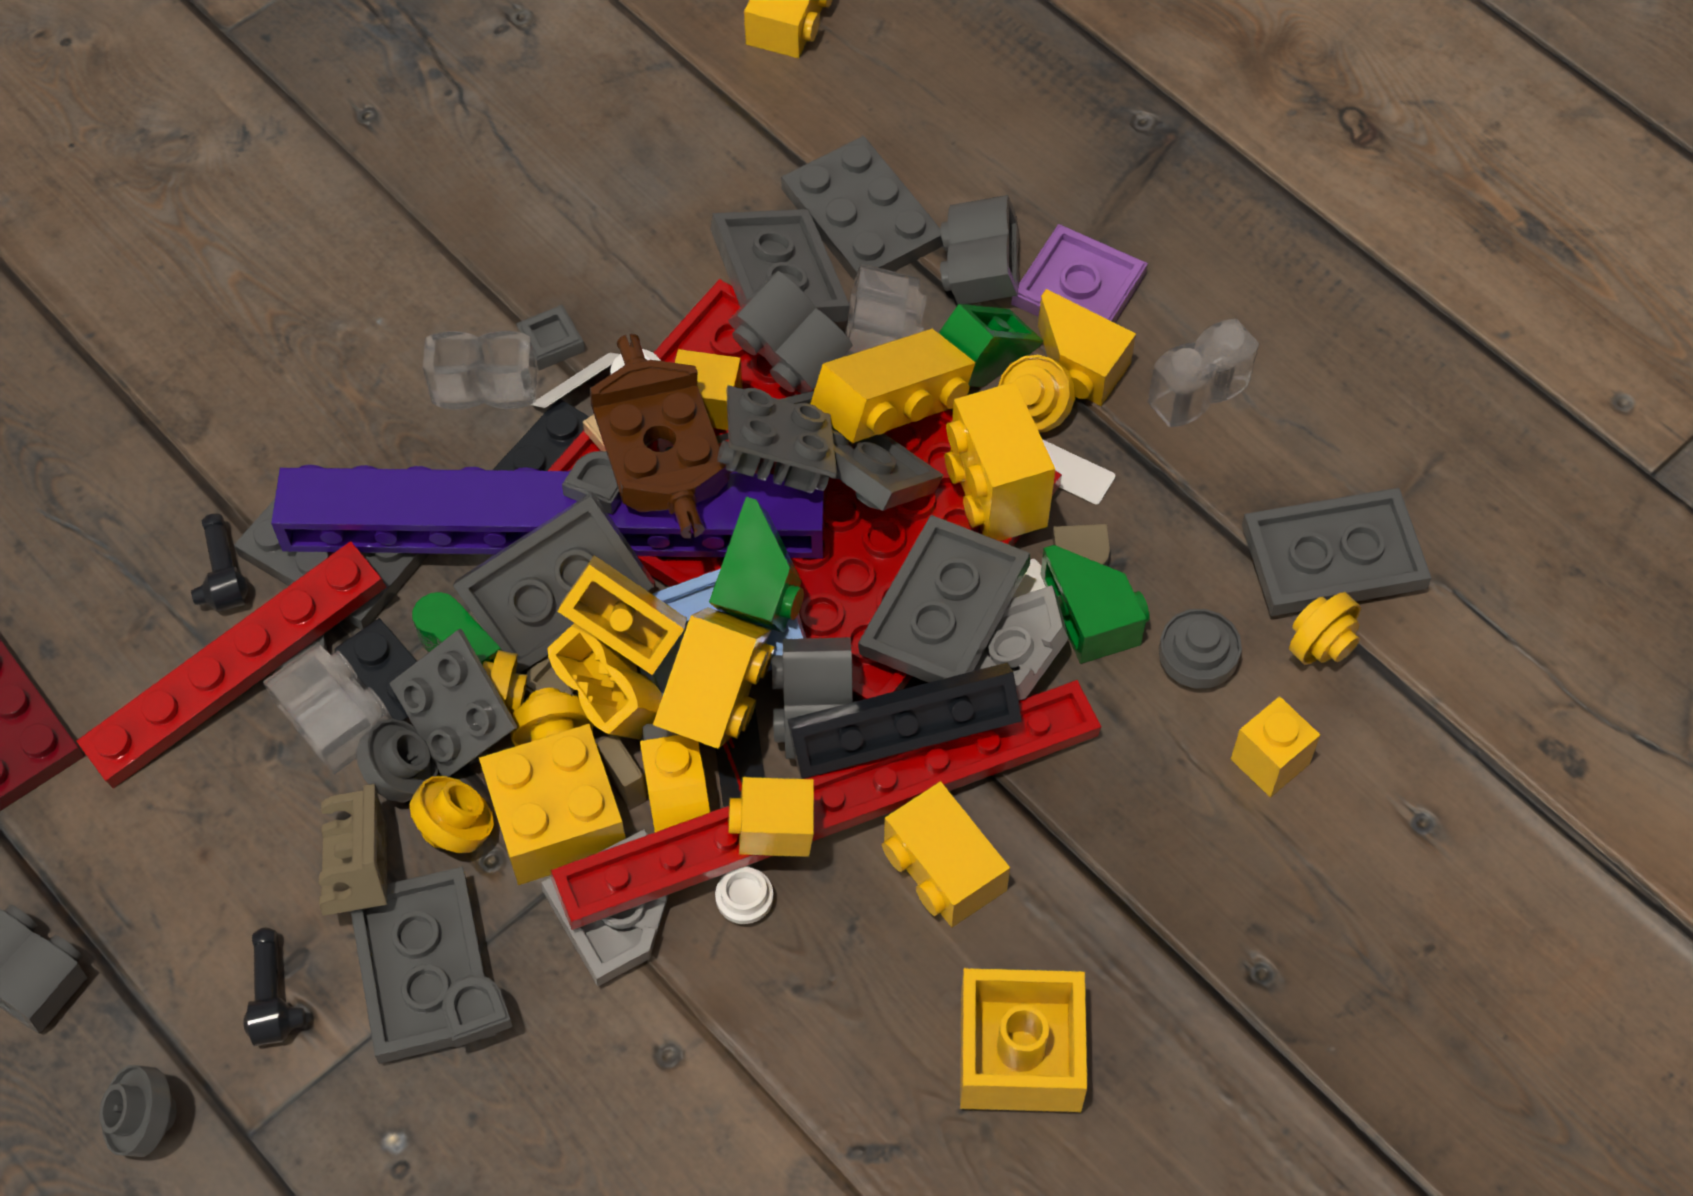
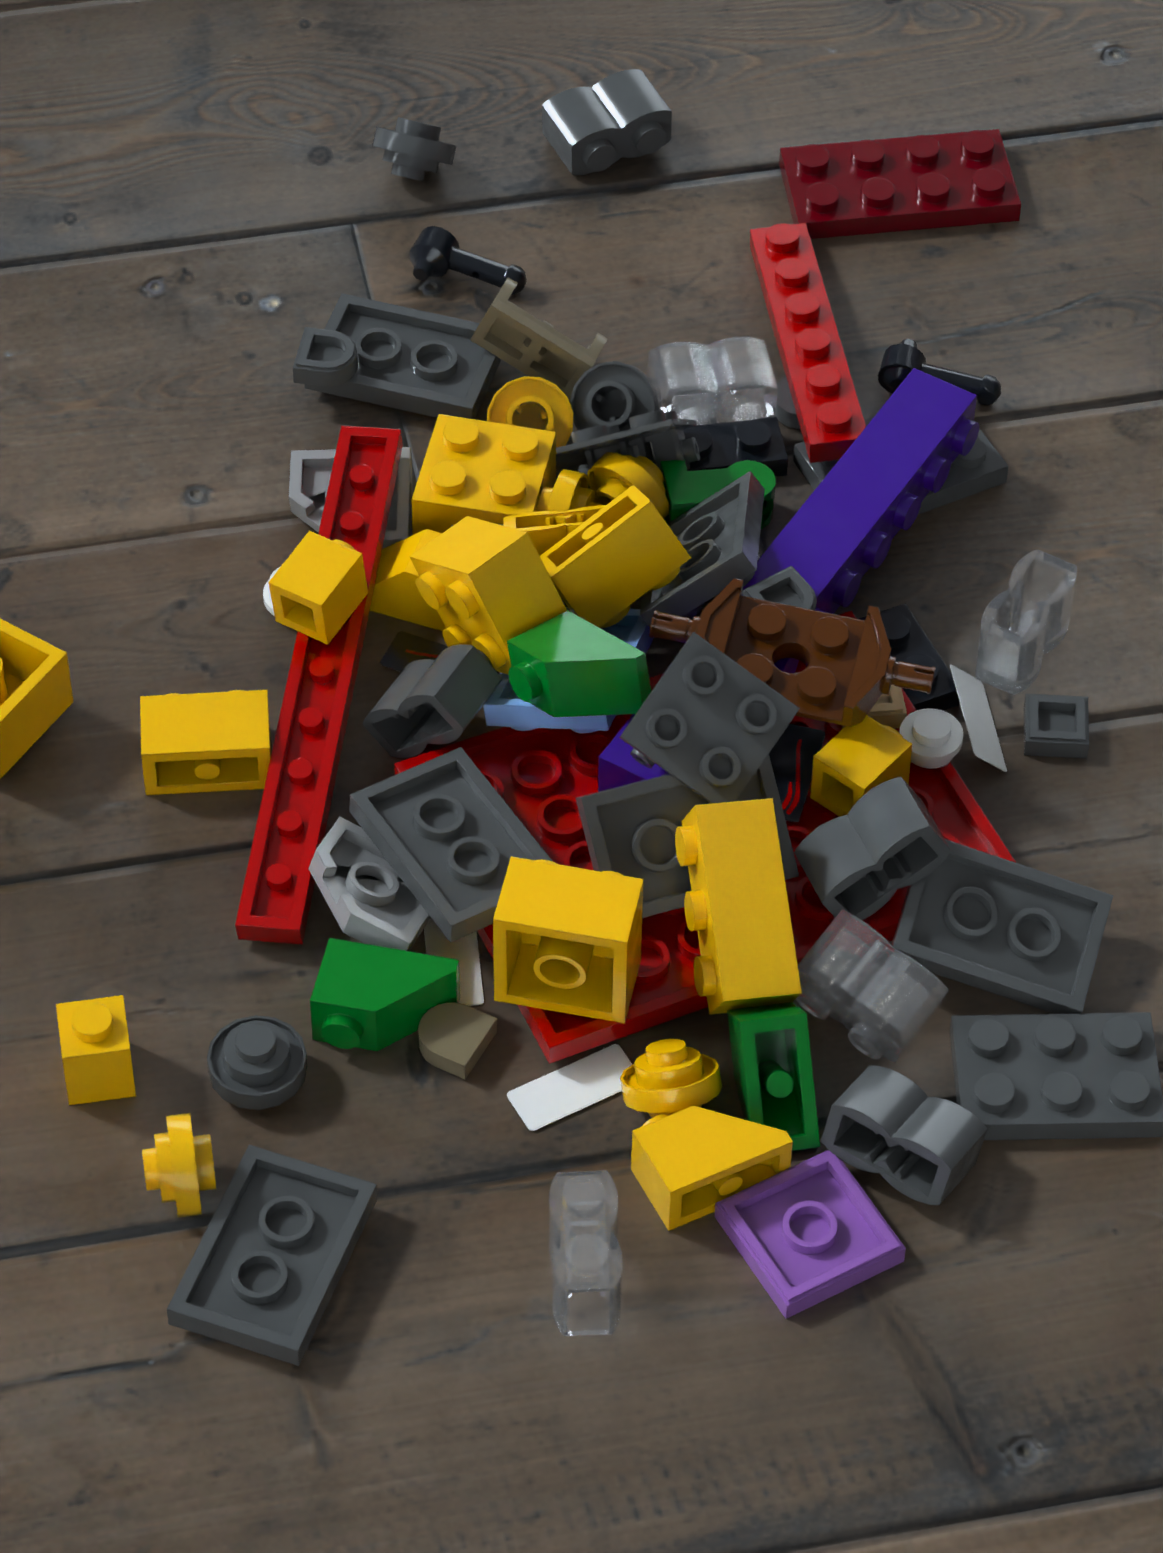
camera: 120 degrees right, 10 degrees down
(904, 720) = (338, 749): black plate -> none

